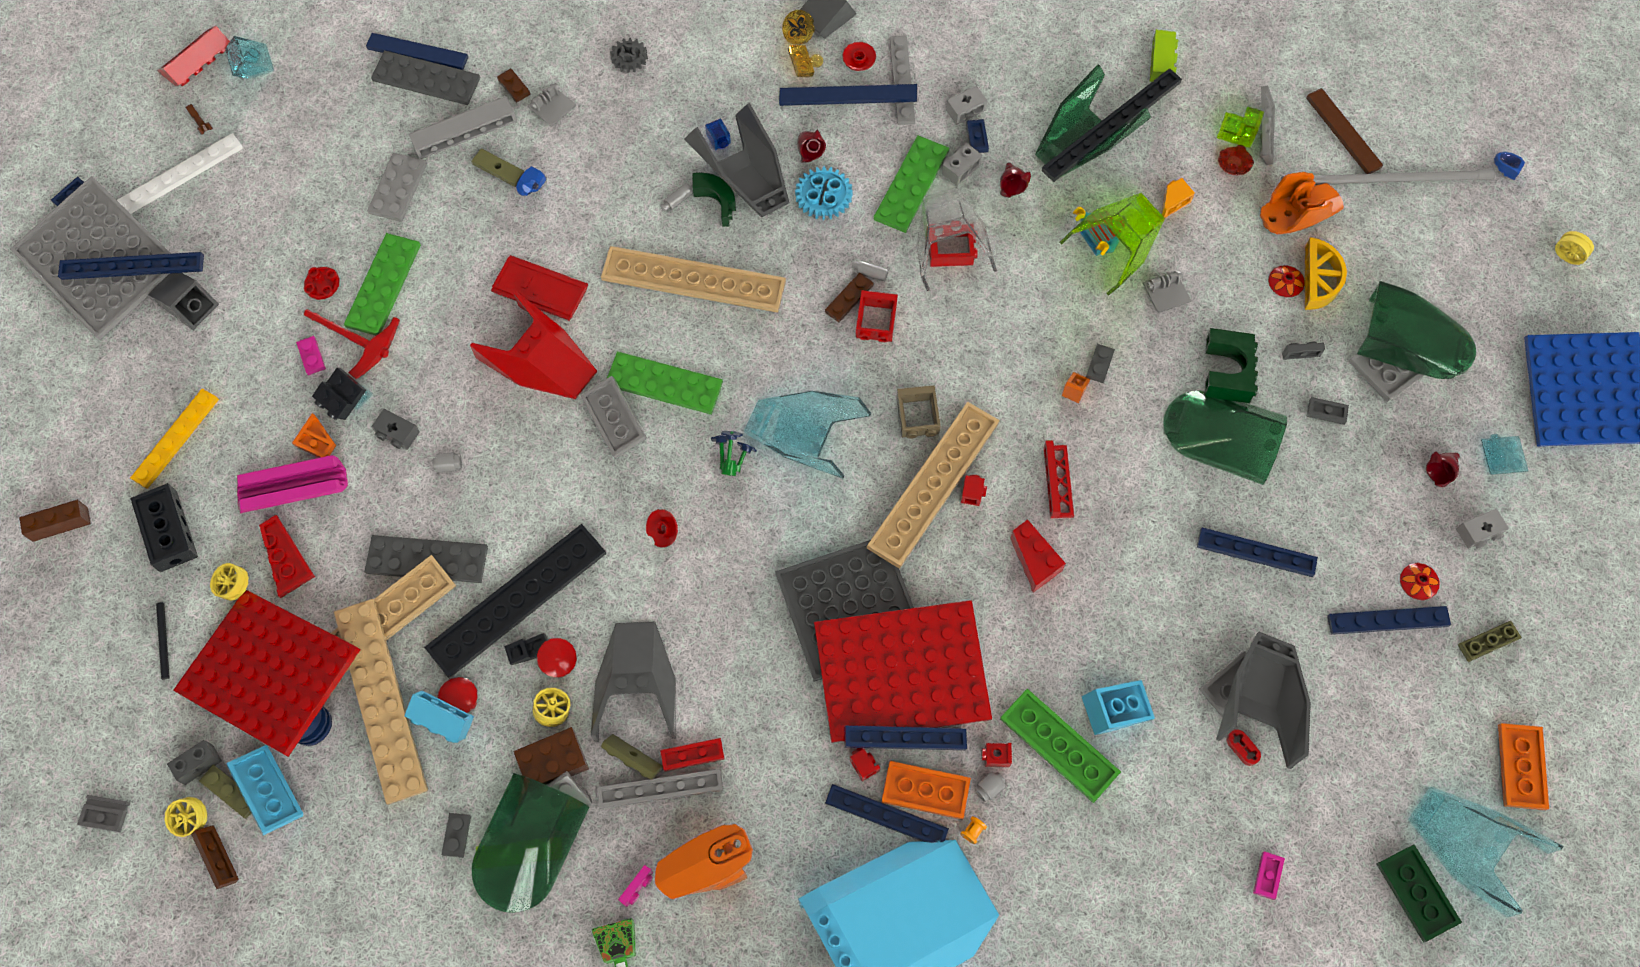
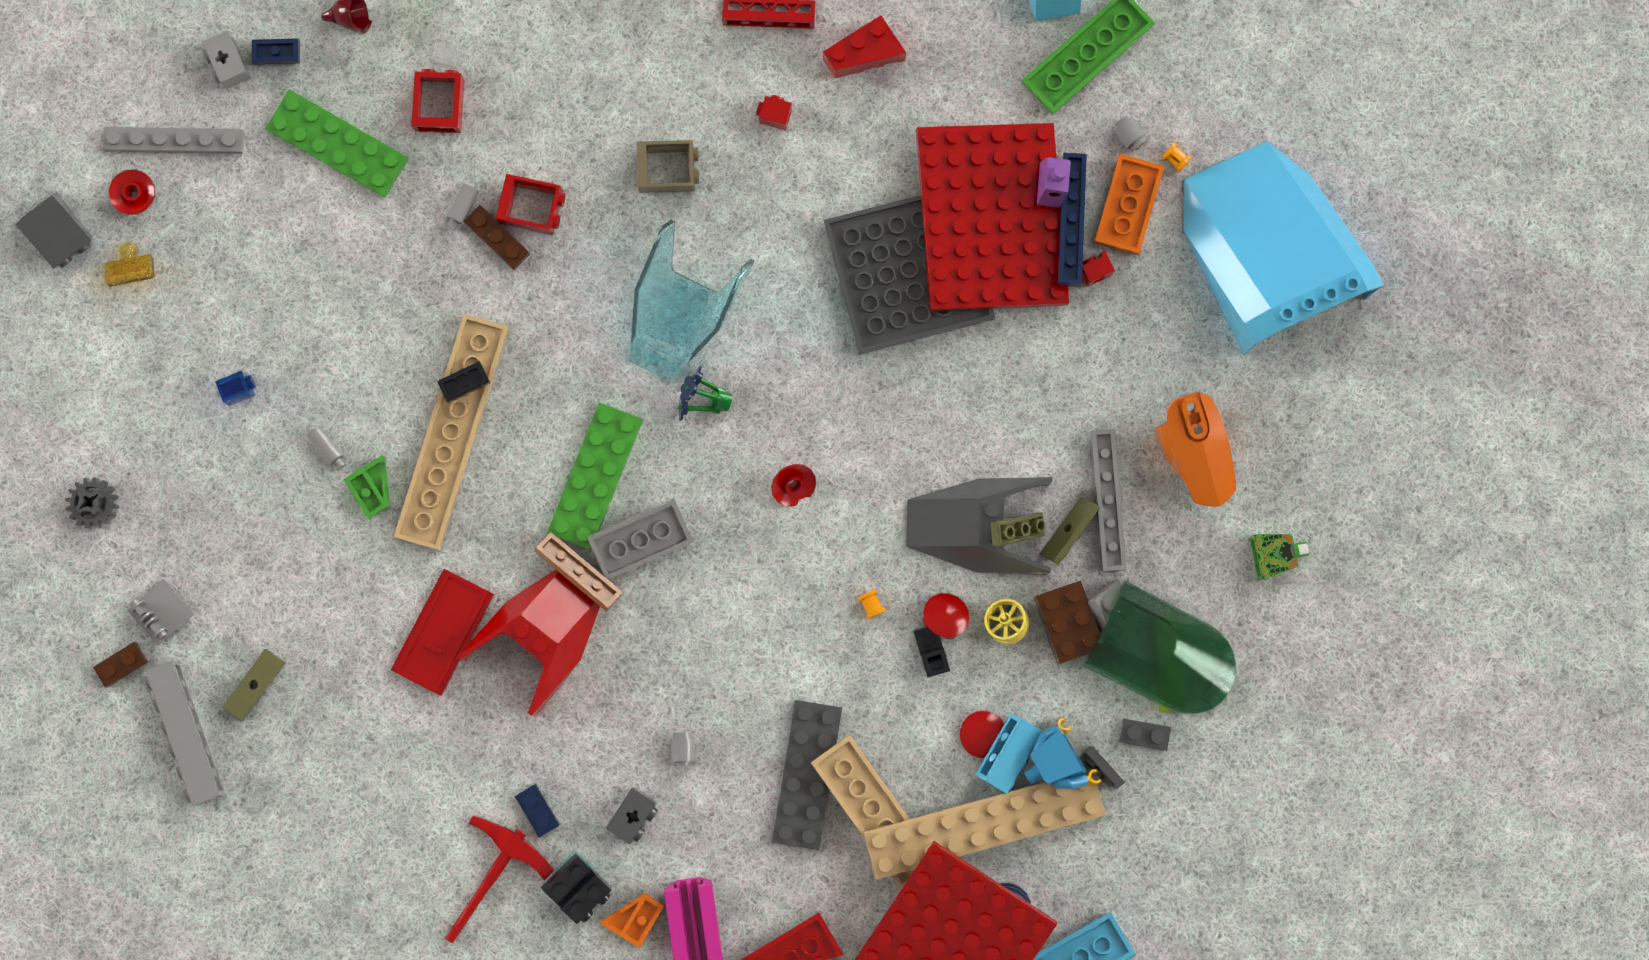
camera: 85 degrees left, 15 degrees up
(311, 355) = (513, 931): dark pink plate -> none
(321, 282) = (407, 921): red dish -> none
(382, 284) = (416, 839): bright green plate -> none
(397, 187) = (267, 823): light grey plate -> none
(402, 364) = (537, 810): none -> dark blue plate
(417, 50) = (46, 801): dark blue tile -> none
(420, 804) = (1109, 775): none -> dark grey plate
(425, 77) = (92, 788): dark grey plate -> none
(430, 754) = (1058, 761): none -> dark azure torso
(515, 601) = (870, 663): black plate -> none
(530, 181) = (282, 640): blue rock -> none
(565, 597) = (871, 604): none -> light orange bush
(586, 374) = (578, 571): none -> plate
(628, 707) = (1017, 529): none -> olive tile
(642, 879) = (1209, 523): dark pink plate -> none
(648, 228) = (370, 487): none -> bright green wing
(692, 754) = (1071, 462): red plate -> none
(715, 187) = (320, 392): dark green arch -> none
(730, 280) = (463, 382): none -> black plate
(754, 170) = (297, 346): dark grey windscreen -> none
(798, 27) = (76, 269): clear yellow tile -> none
(808, 189) = (349, 237): medium azure gear -> none
(810, 145) = (267, 268): dark red hat -> none
(848, 94) = (193, 211): dark blue tile -> none
(885, 815) = (1152, 252): dark blue tile -> none
(933, 485) = (764, 156): tan plate -> none
(935, 715) = (1053, 178): none -> medium lavender torso
(948, 216) = (406, 101): clear windscreen -> none
(961, 164) = (317, 75): light grey brick -> none
(1003, 760) = (1089, 129): red brick -> none

